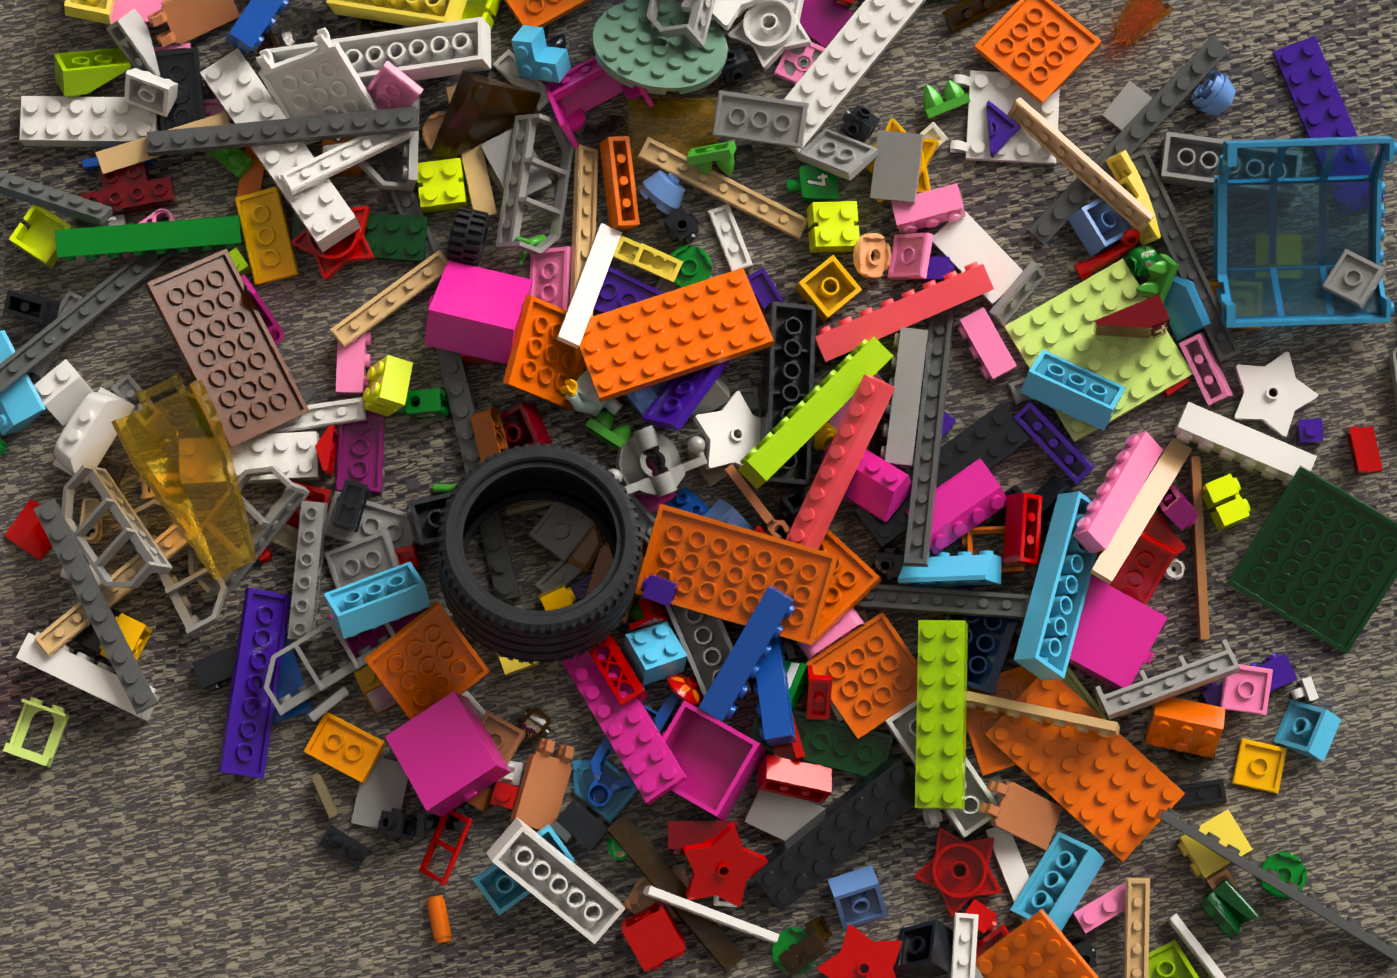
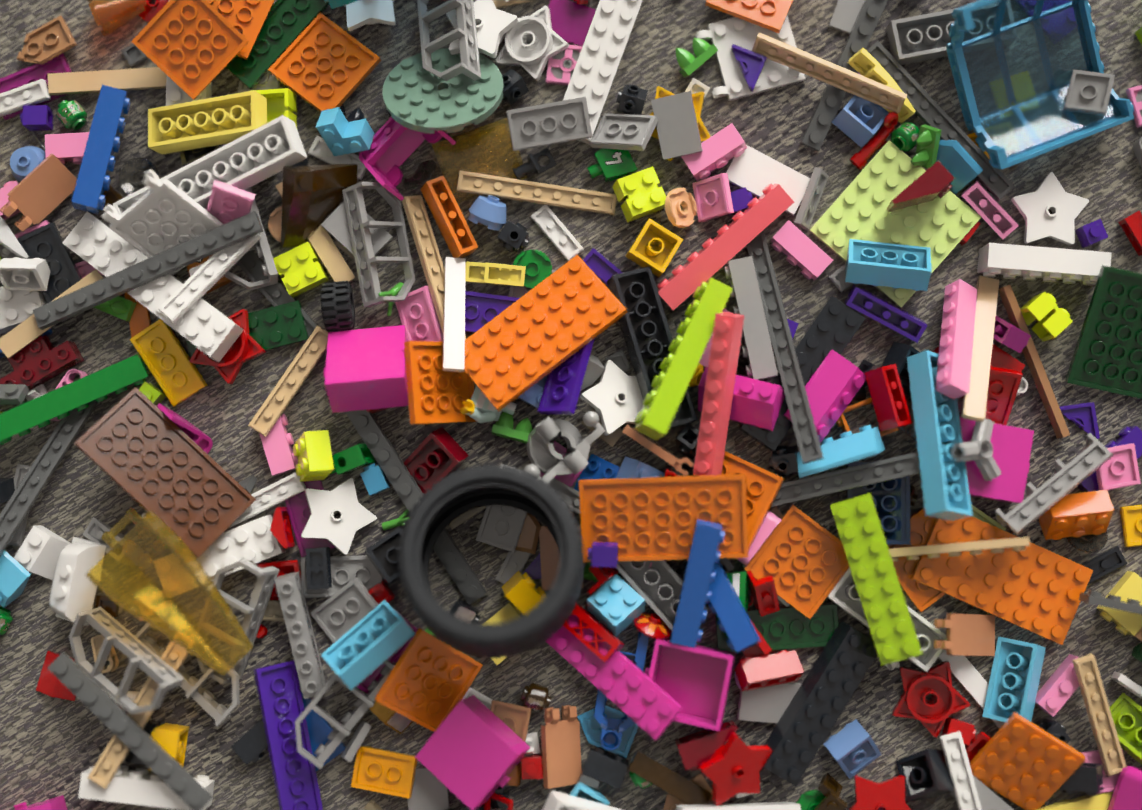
camera: 20 degrees left, 5 degrees up
(372, 458) = (324, 525): none -> white plate
(443, 434) = (374, 479): none -> dark azure brick
(488, 432) = (415, 469): dark orange beam -> none
(722, 153) = (526, 163): bright green tile -> none
(1097, 614) = (979, 450): none -> light grey piece
(1233, 626) = (1083, 416): none -> dark purple tile

